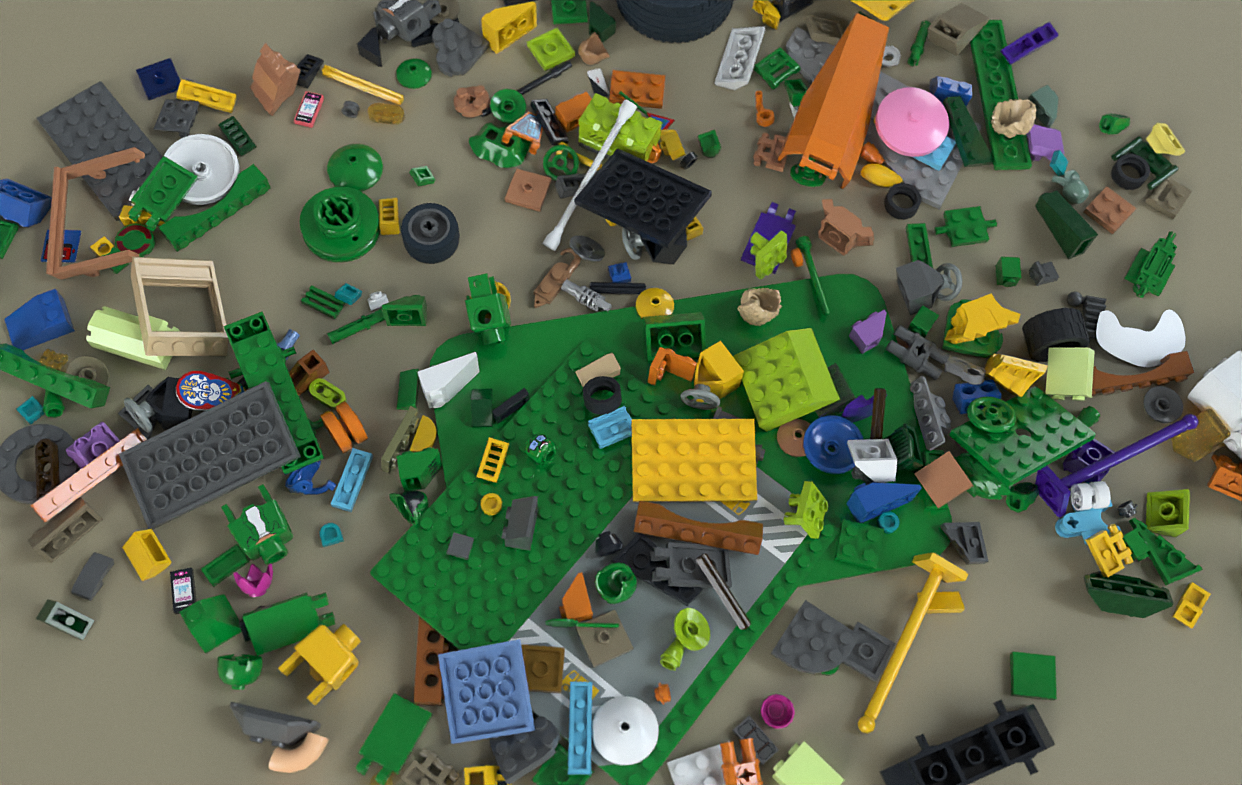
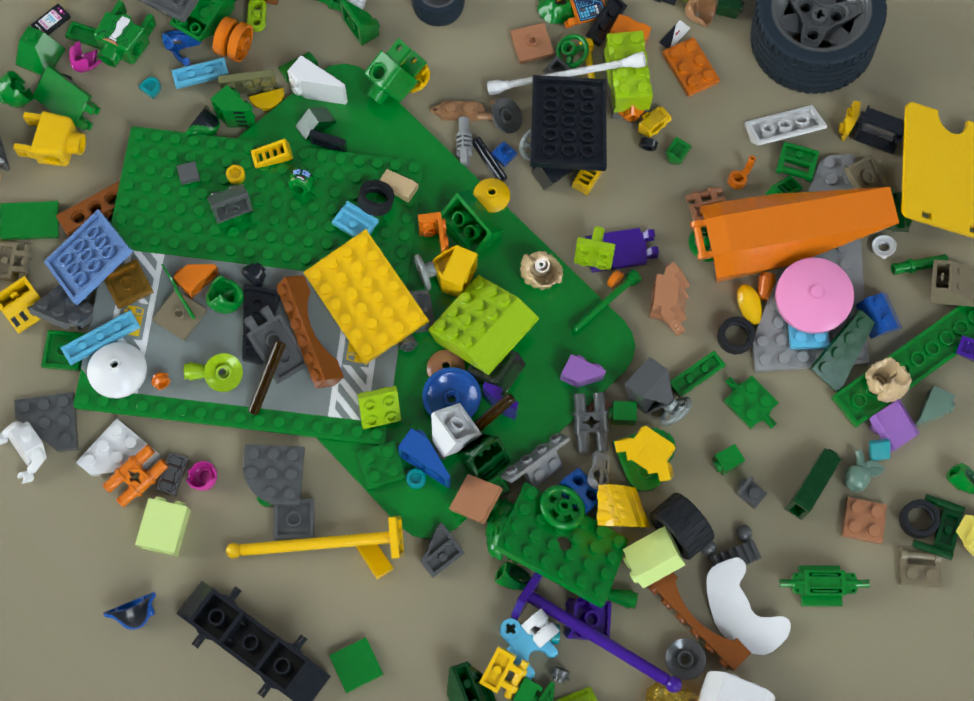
camera: 60 degrees right, 5 degrees up
(666, 122) = (670, 101): piece -> none

